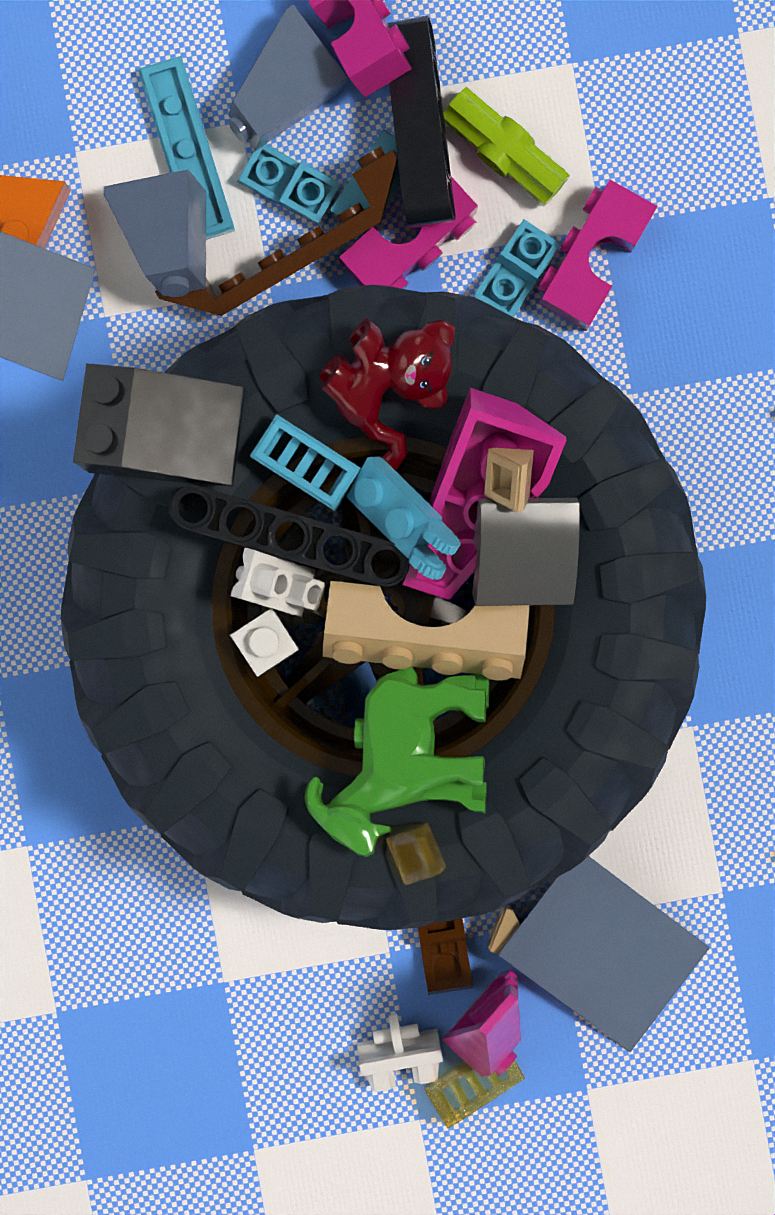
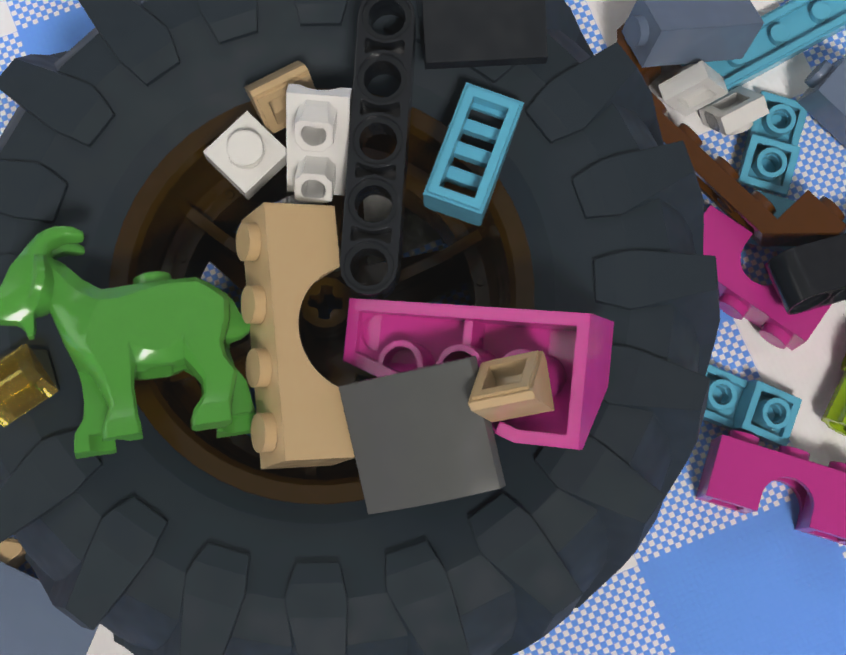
camera: 80 degrees right, 10 degrees down
(219, 607) = (269, 94): none -> tan slope
(226, 243) = (693, 88): none -> white plate
(252, 210) = (734, 111): none -> white plate
(403, 516) = (430, 276): medium azure hinge -> none
(413, 366) = (622, 248): dark red animal -> none

